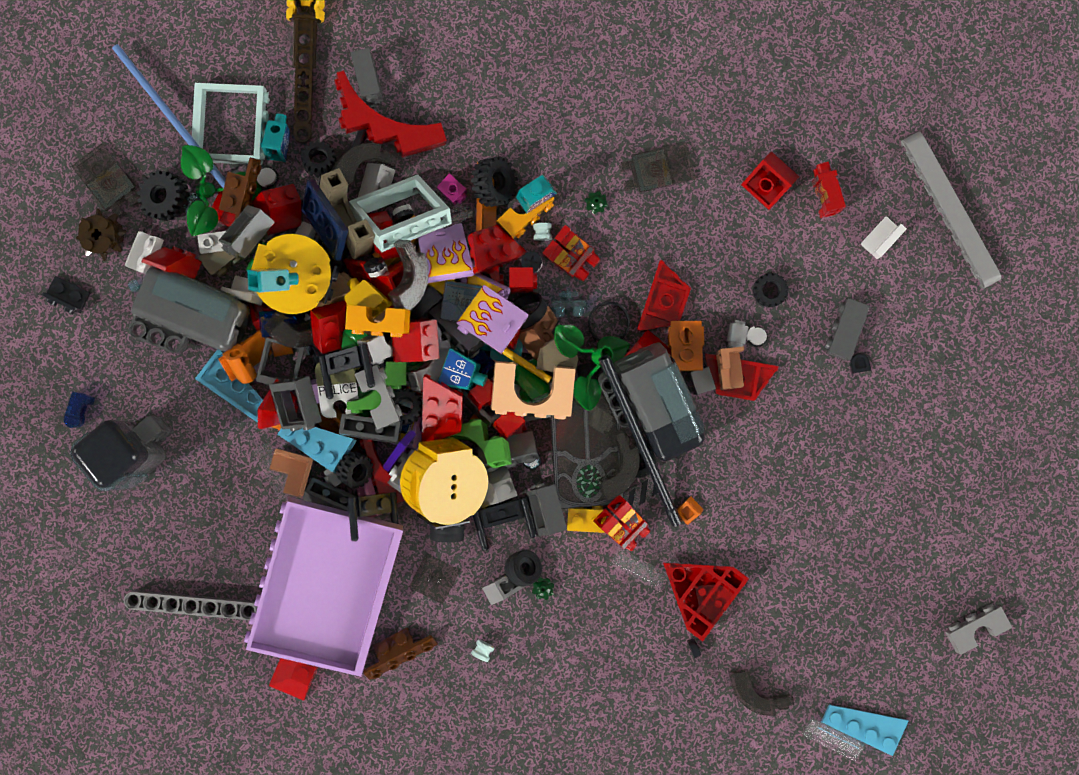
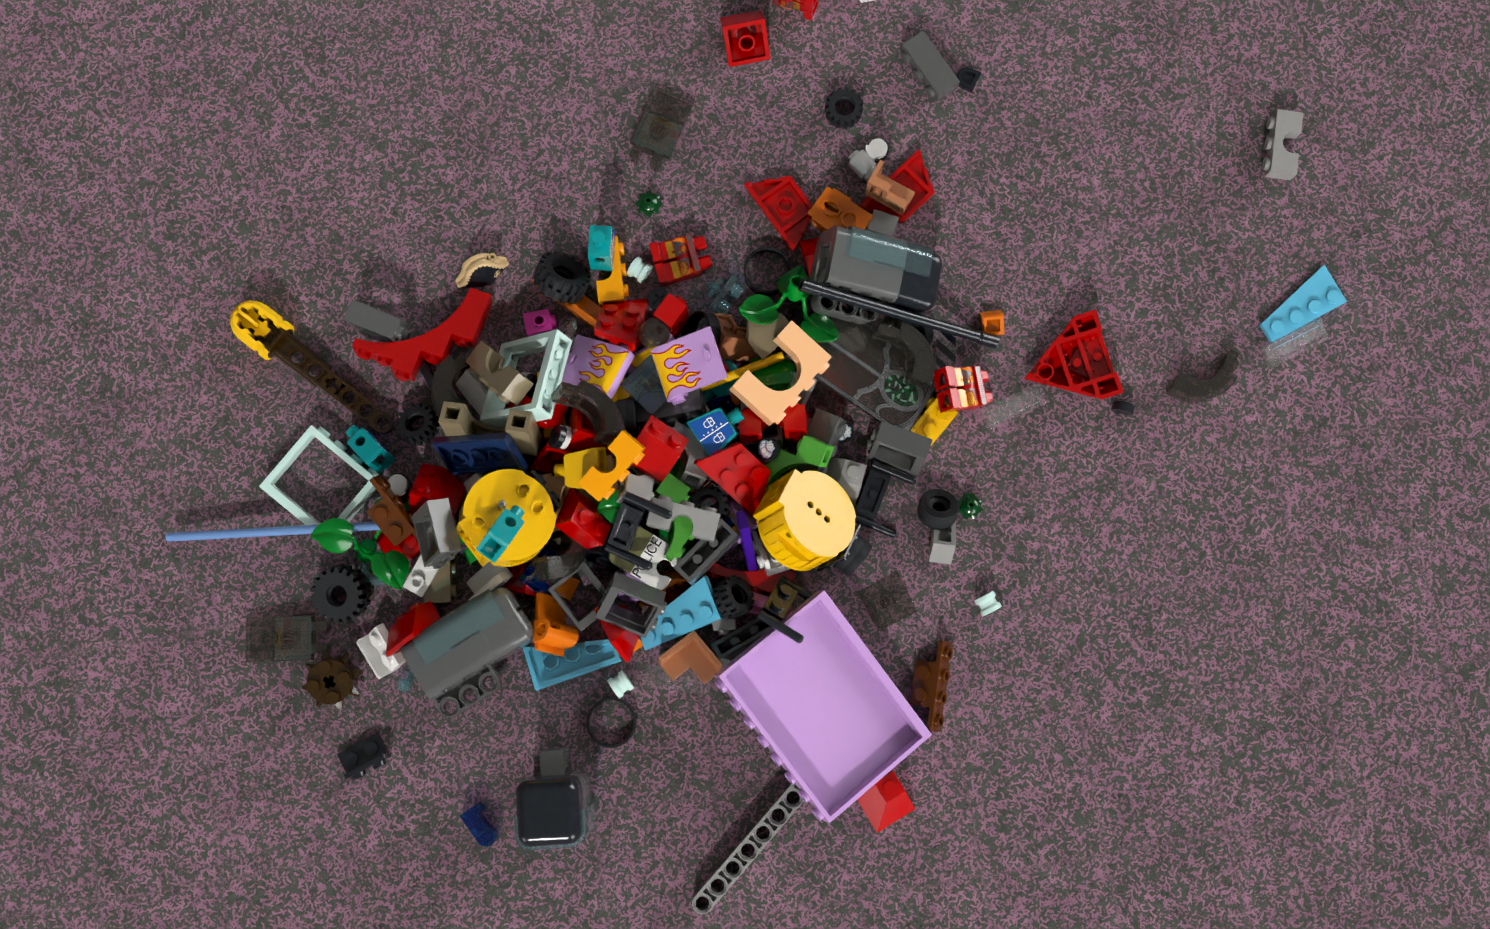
camera: 55 degrees left, 5 degrees down
(191, 448) = (589, 728): none -> black tyre
(241, 434) = (620, 684): none -> light aqua wheel
(385, 202) = (506, 382): none -> dark tan arch
(461, 120) = (481, 270): none -> tan hat
(475, 418) = (767, 449): none -> tile
(497, 277) = (653, 333): none -> clear smoke head

